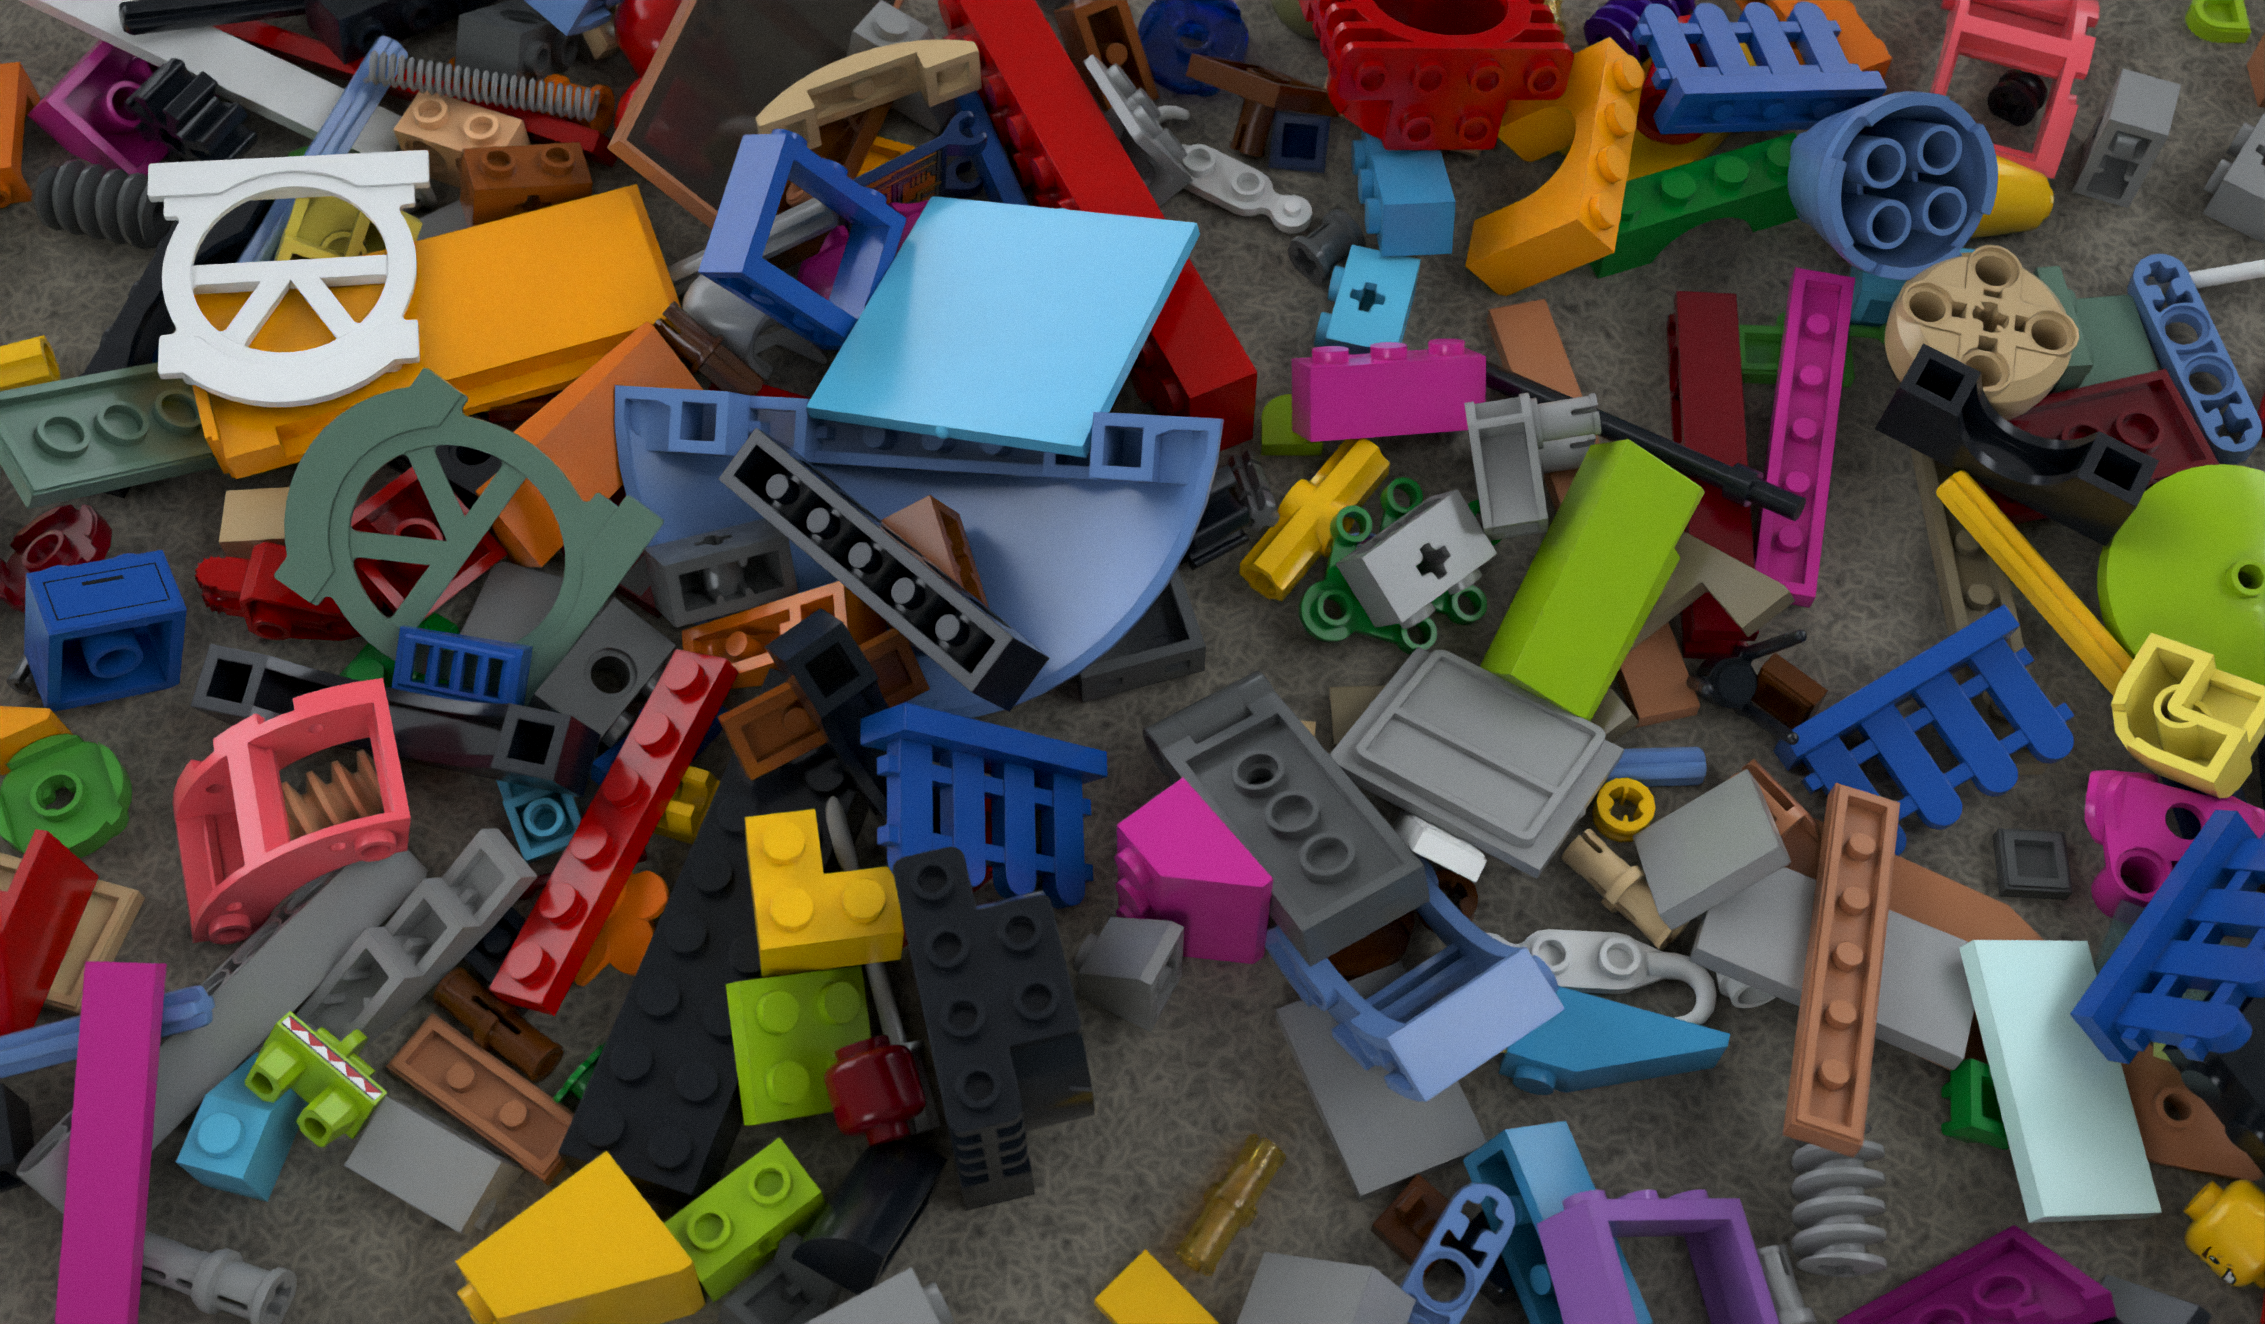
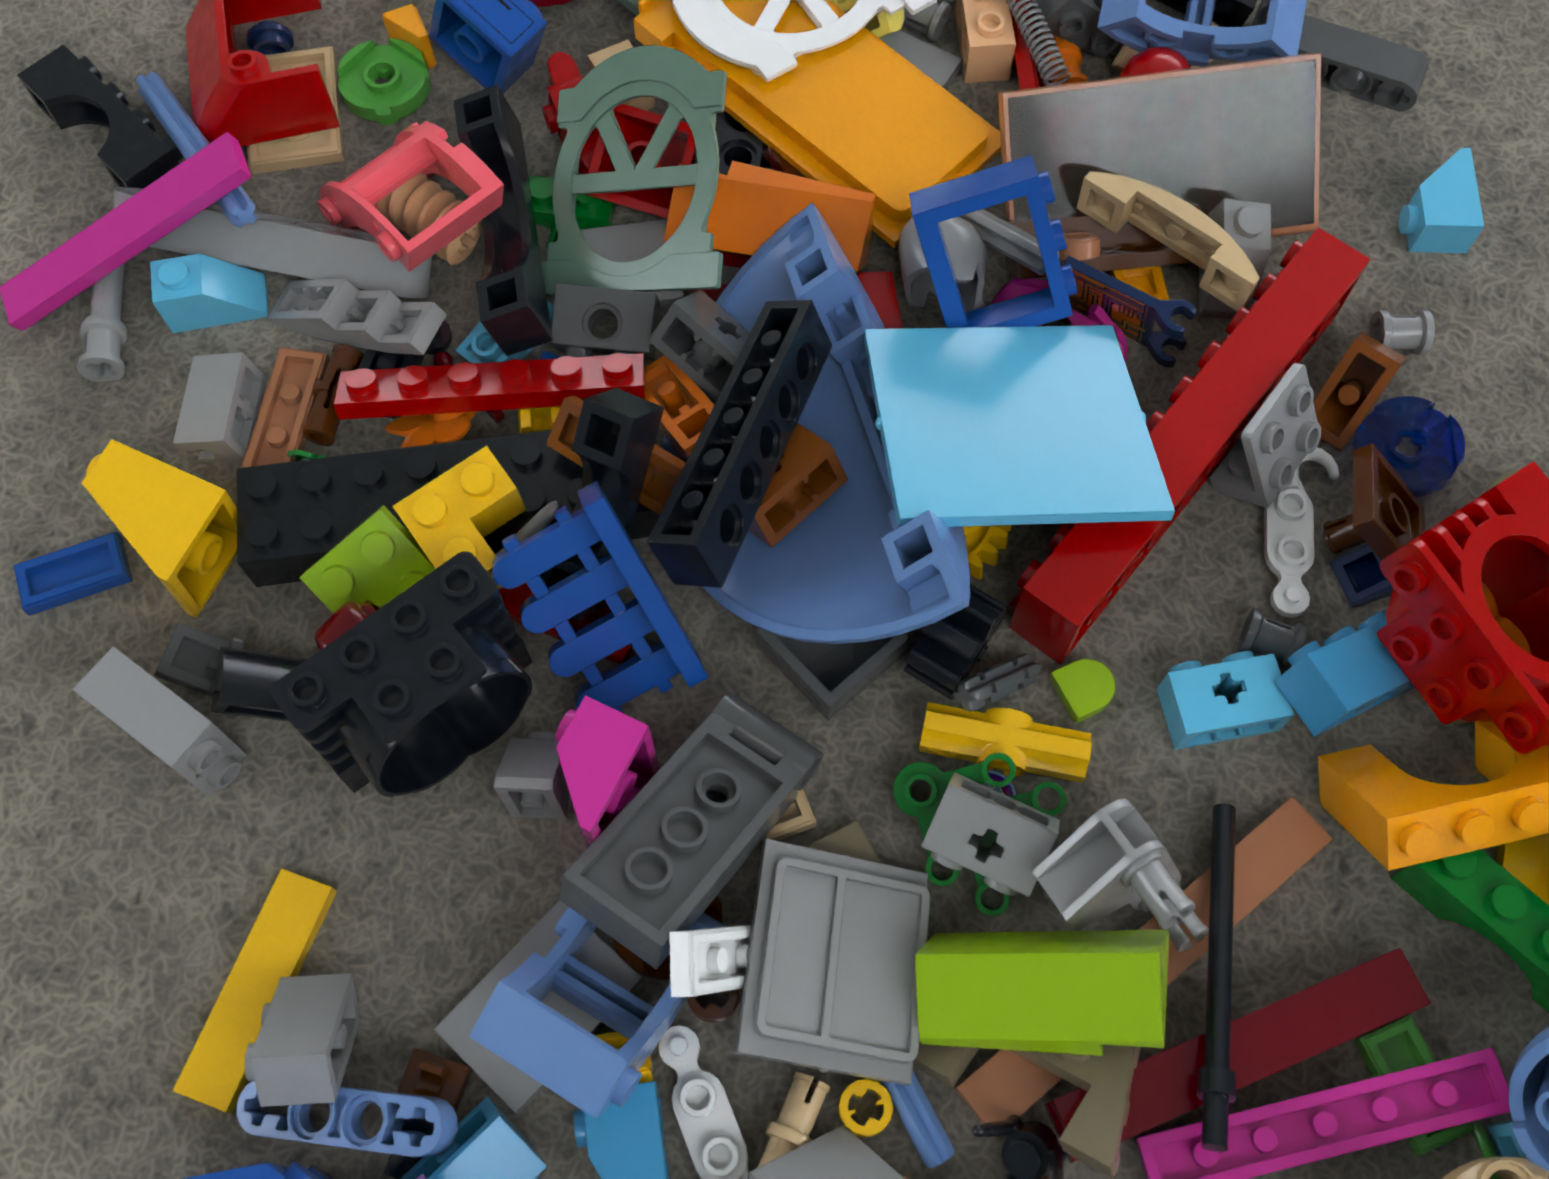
camera: 65 degrees right, 5 degrees up
(320, 1072) = (239, 285): lime hips -> none
(513, 674) = (581, 253): blue slope -> none
(520, 179) = (965, 69): dark orange brick -> none
(707, 353) = (885, 250): reddish brown axle -> none
(745, 1217) = (247, 608): lime brick -> none
(992, 162) = (1183, 362): blue tile -> none
(1230, 1205) = (389, 933): clear yellow pin -> none
(1385, 390) = (1145, 746): dark pink brick -> none

